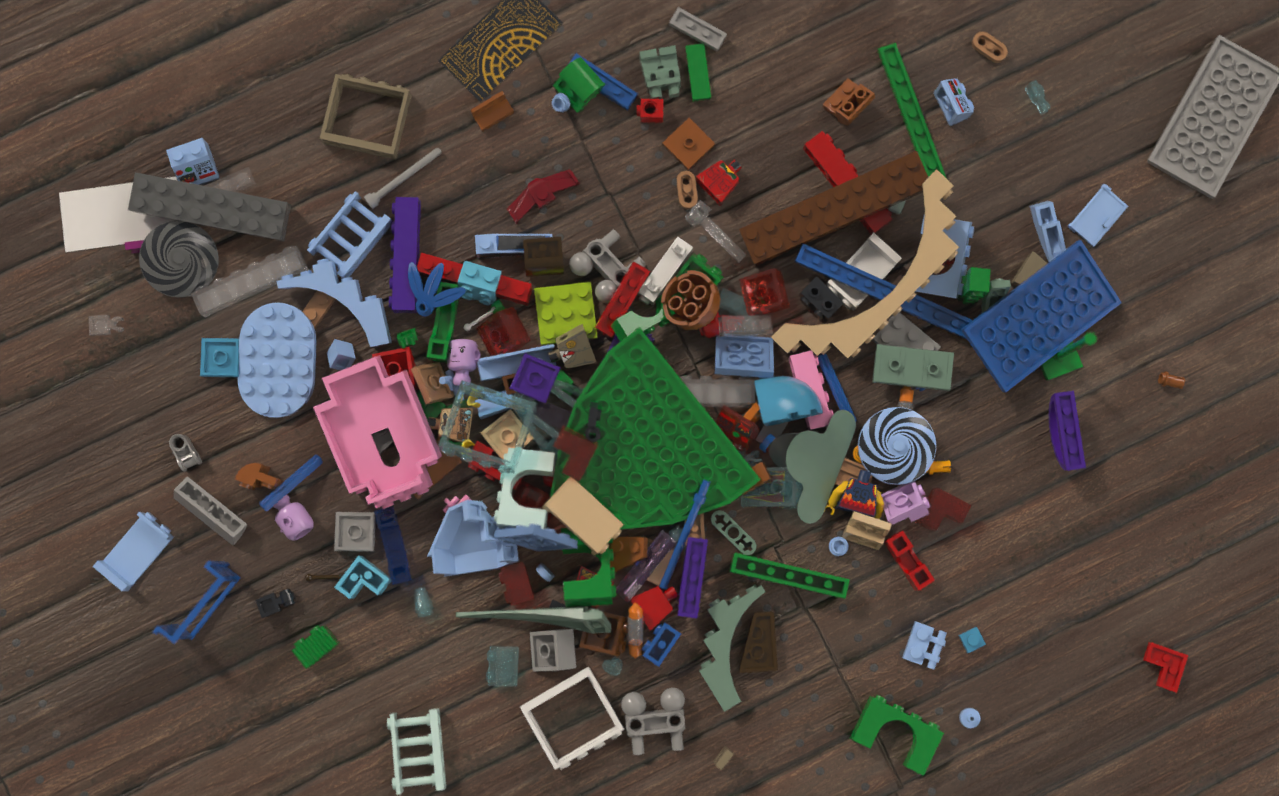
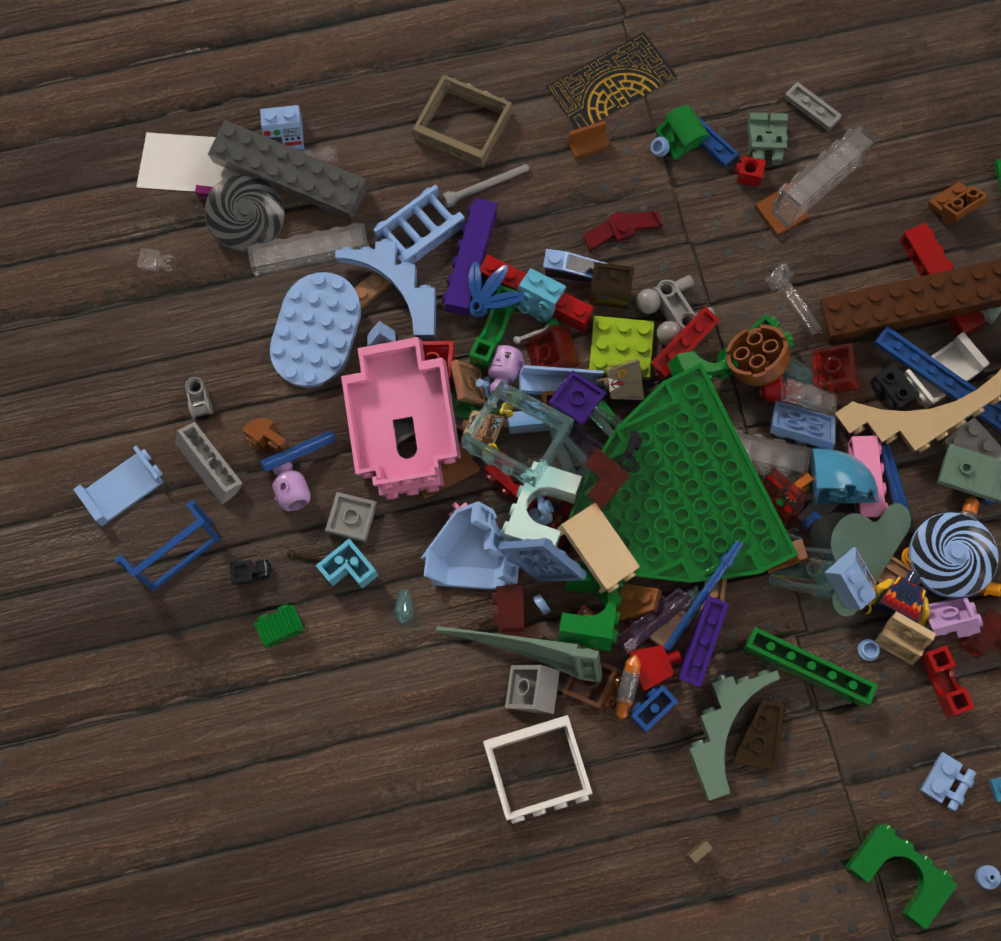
camera: 20 degrees right, 10 degrees down
(219, 357) = (259, 315): dark azure plate -> none
(393, 545) = (388, 539): clear blue slope -> none
(407, 337) = (453, 335): green plate -> none
(436, 759) = (377, 777): light aqua fence -> none
(502, 665) = (474, 693): clear light blue bracket -> none
(504, 433) = (531, 449): light nougat plate -> none
(526, 493) = (543, 512): none -> light blue bracket
(613, 666) = (594, 723): clear light blue piece -> none
(654, 721) = (652, 776): light grey piece -> none
(664, 271) = (737, 321): white brick -> none
(687, 191) = (771, 255): medium nougat plate -> none
(698, 72) = (804, 144): green tile -> none
(719, 104) = (822, 175): none -> clear brick
(719, 180) = (807, 251): red torso -> none
(740, 546) = (769, 619): sand green beam -> none
(812, 492) = (852, 580): none -> light blue slope

